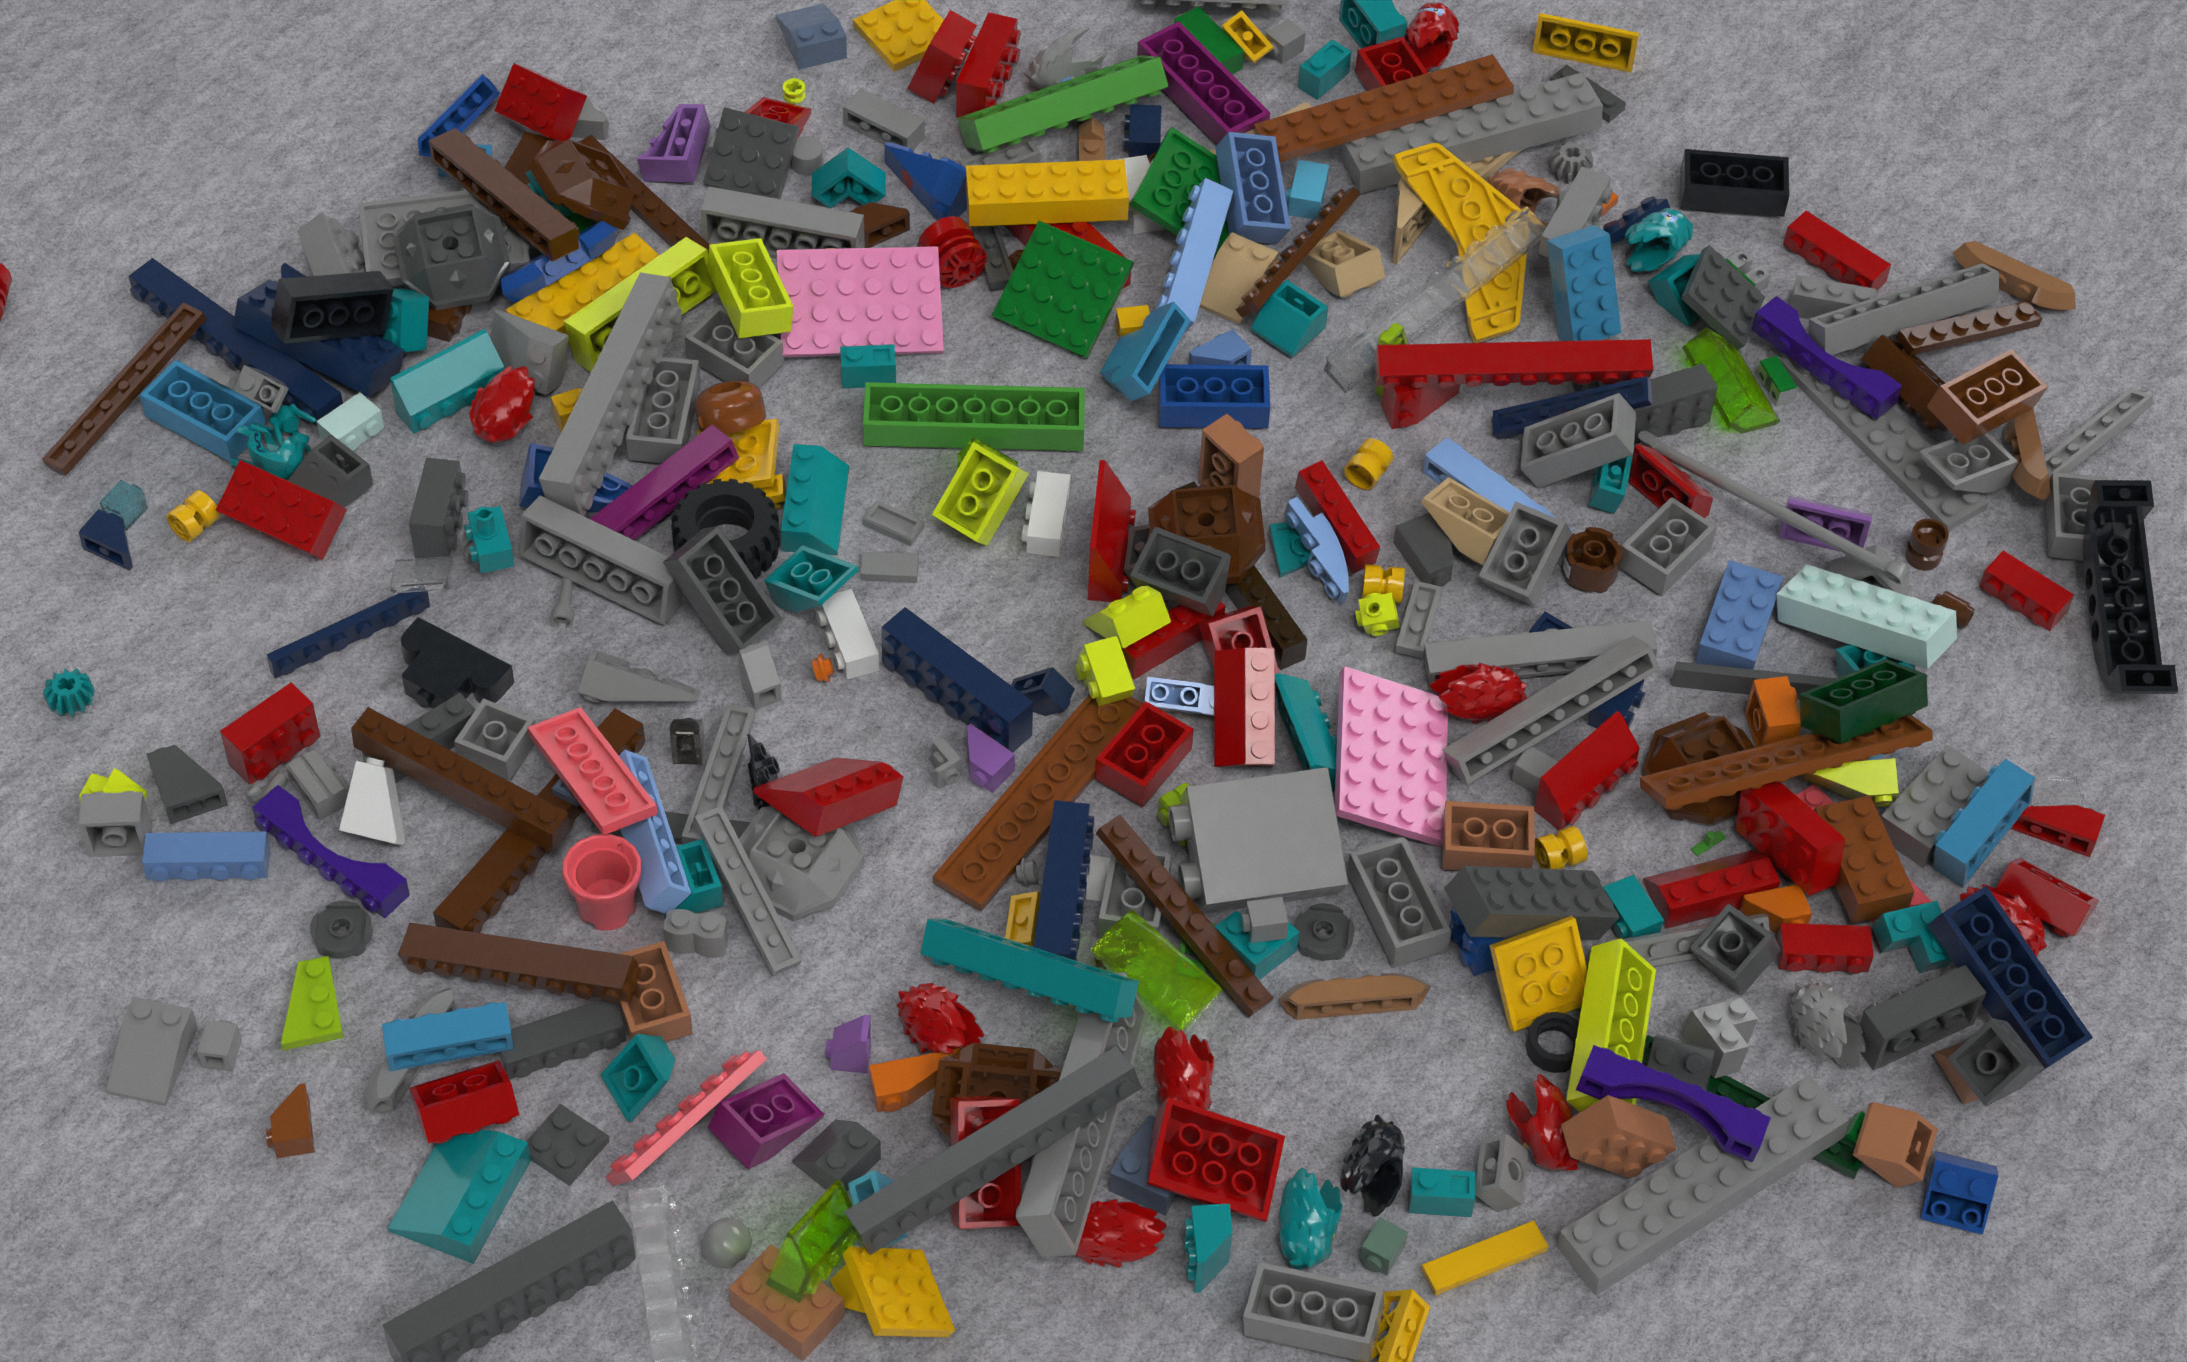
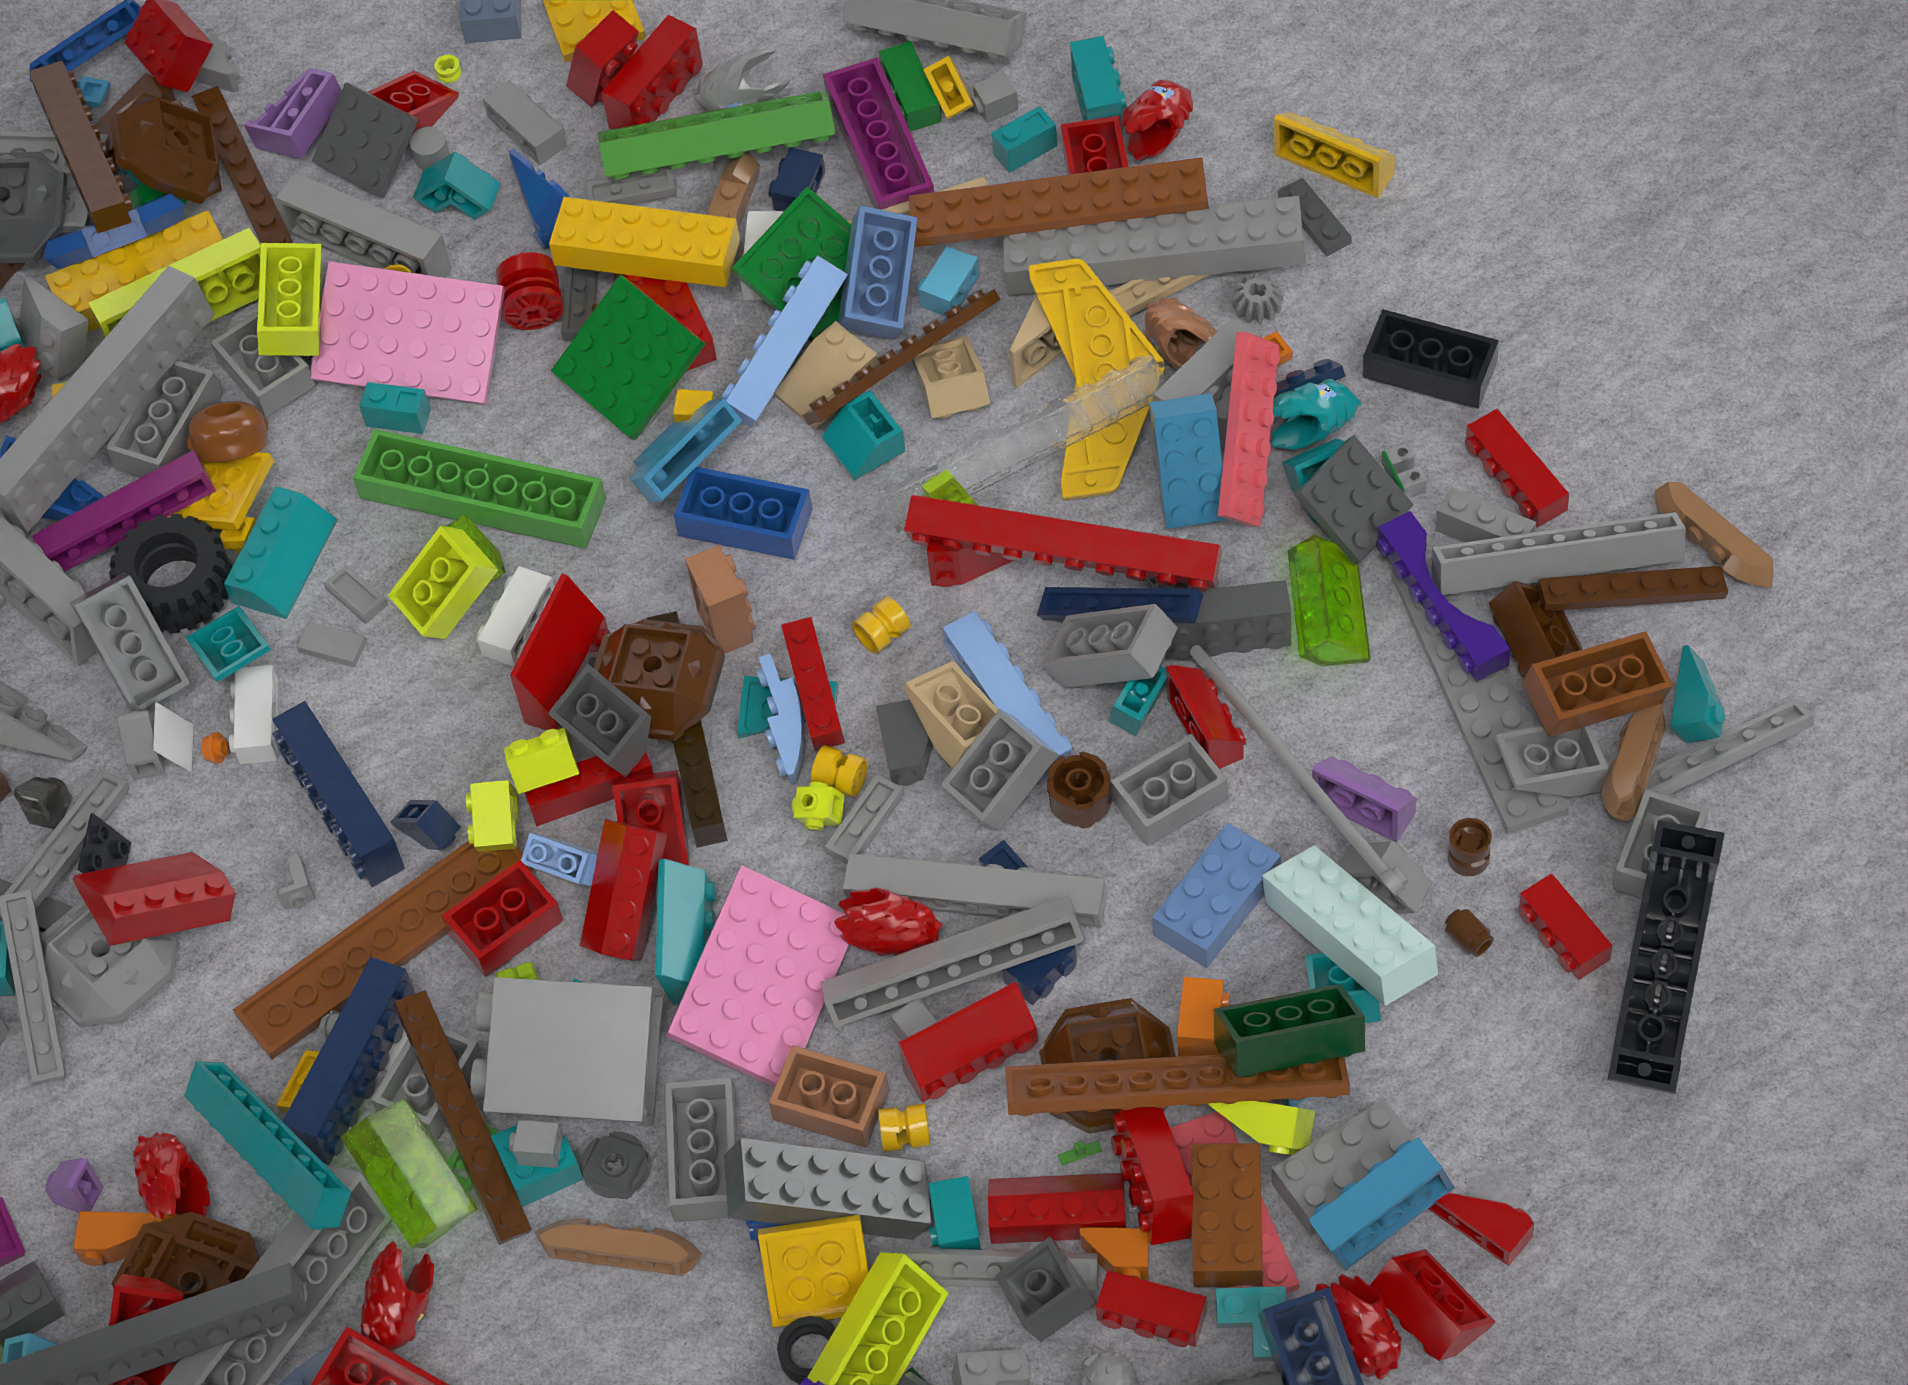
camera: 25 degrees right, 5 degrees up
(784, 664) = (173, 737): none -> white sticker
(883, 222) = (471, 241): reddish brown slope -> none
(988, 760) = (339, 889): medium lavender slope -> none
(1222, 350) = (774, 463): medium blue slope -> none
(1623, 252) = (1248, 429): none -> coral plate
(1735, 679) = (1185, 965): dark grey tile -> none
(1773, 374) = (1383, 611): piece -> none
(2059, 406) = (1697, 706): none -> teal slope

